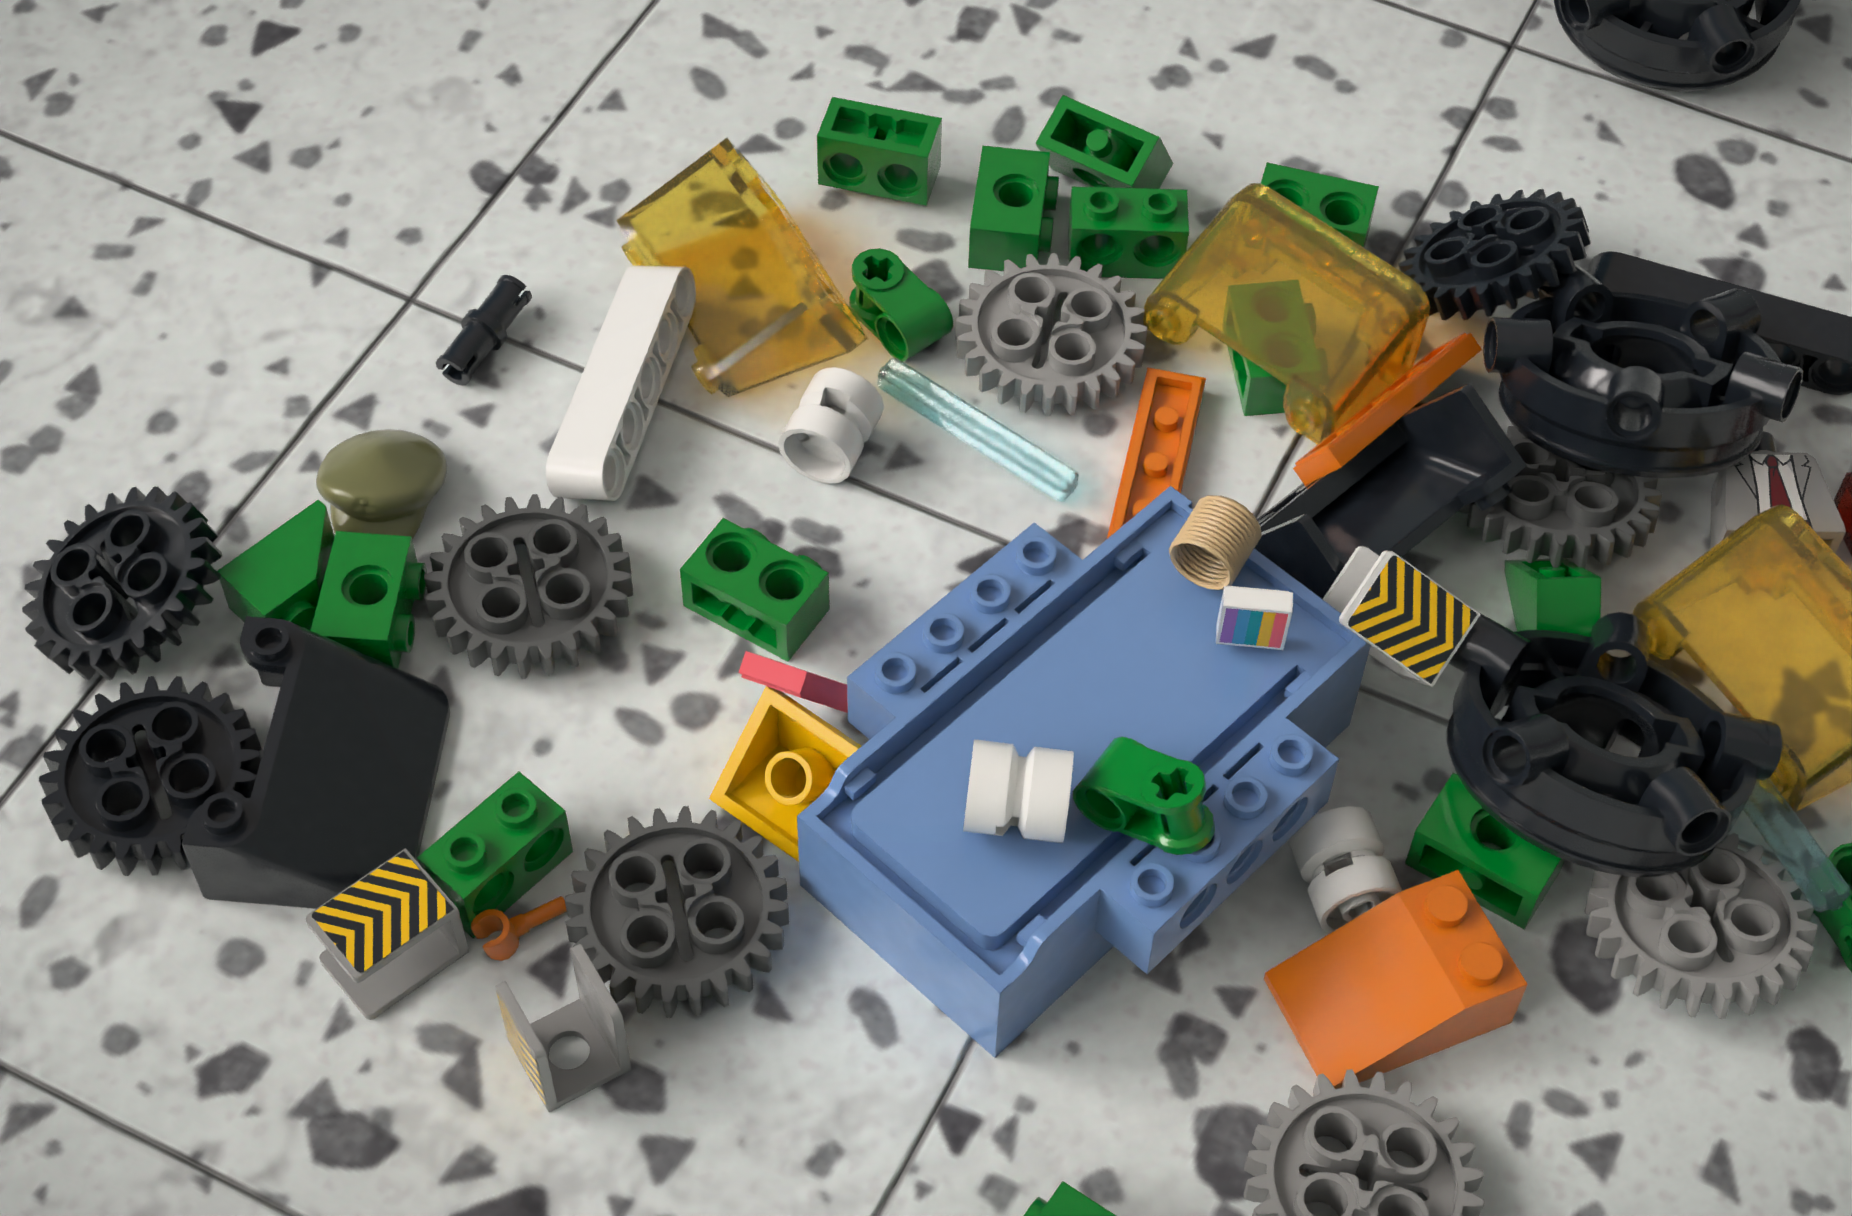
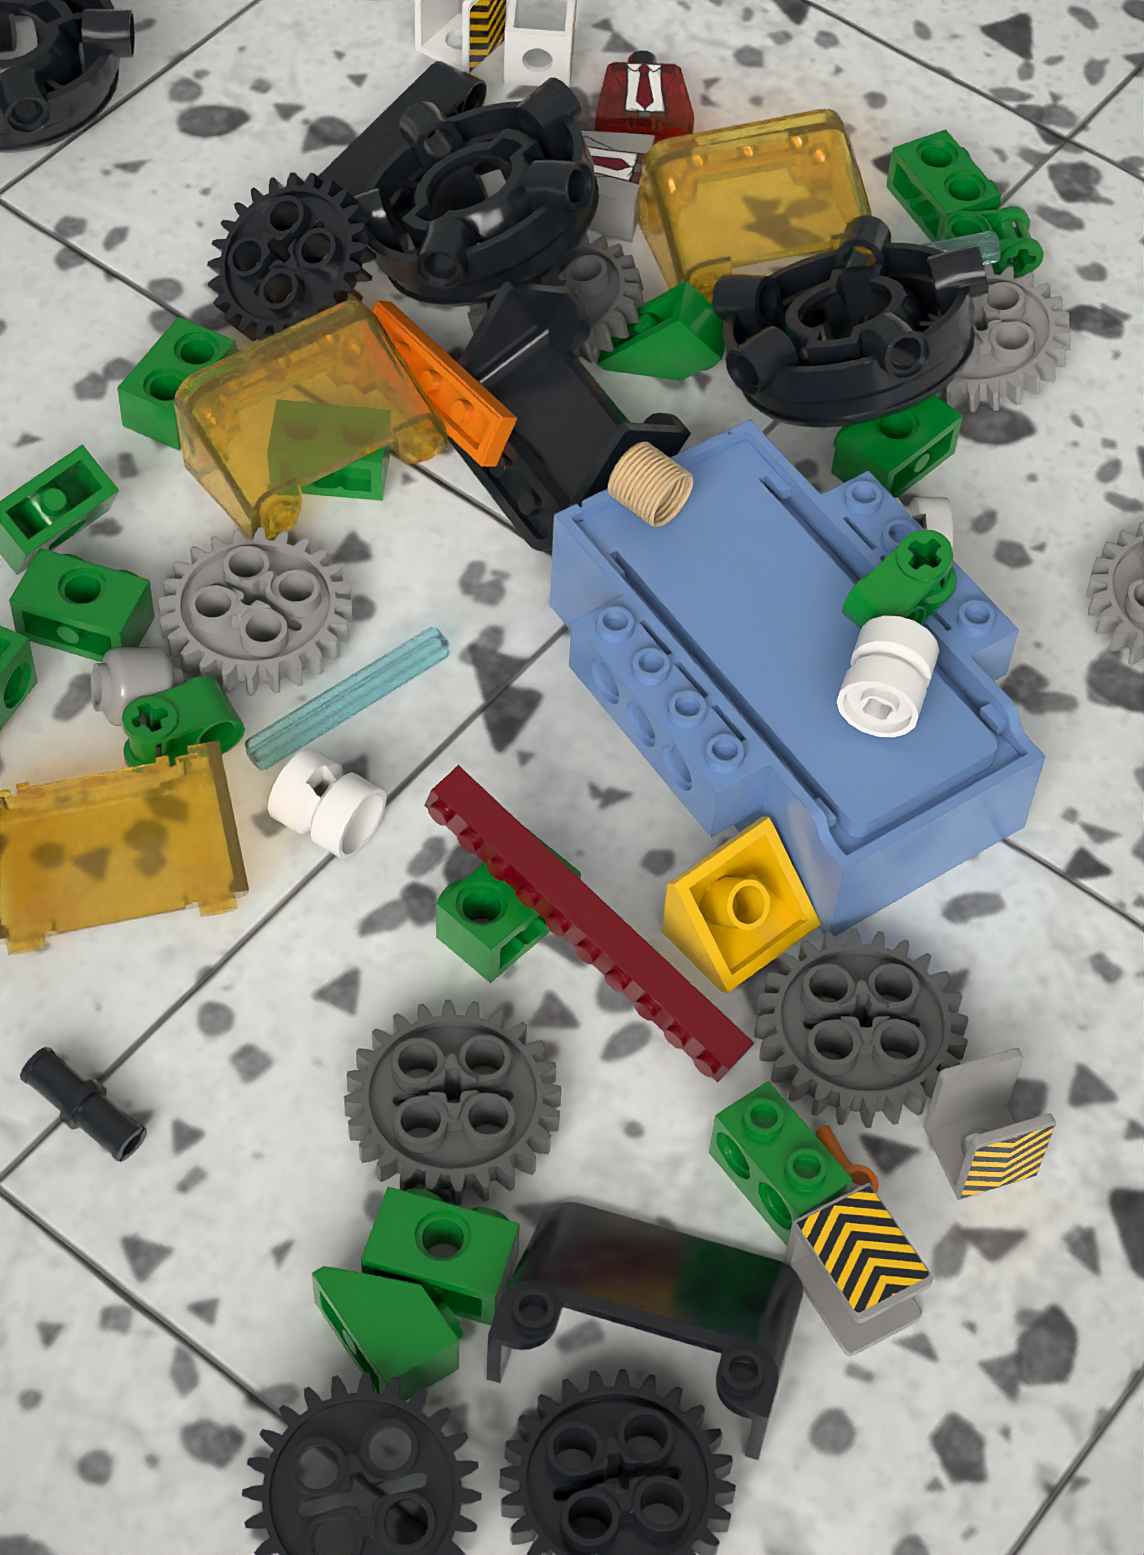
camera: 80 degrees left, 0 degrees up
(381, 481) = (272, 1227): olive piece -> none
(621, 383) = (208, 977): white beam -> none
(719, 639) = (587, 924): none -> dark red piece
(794, 681) = (656, 862): coral tile -> none
(935, 258) = (130, 674): none -> light grey head
(1128, 230) = (153, 517): green brick -> none
(1158, 442) = (436, 576): orange tile -> none
(1254, 617) = (735, 478): tile -> none
(1398, 983) = (1013, 527): orange slope -> none
(1401, 614) = (732, 392): piece -> none

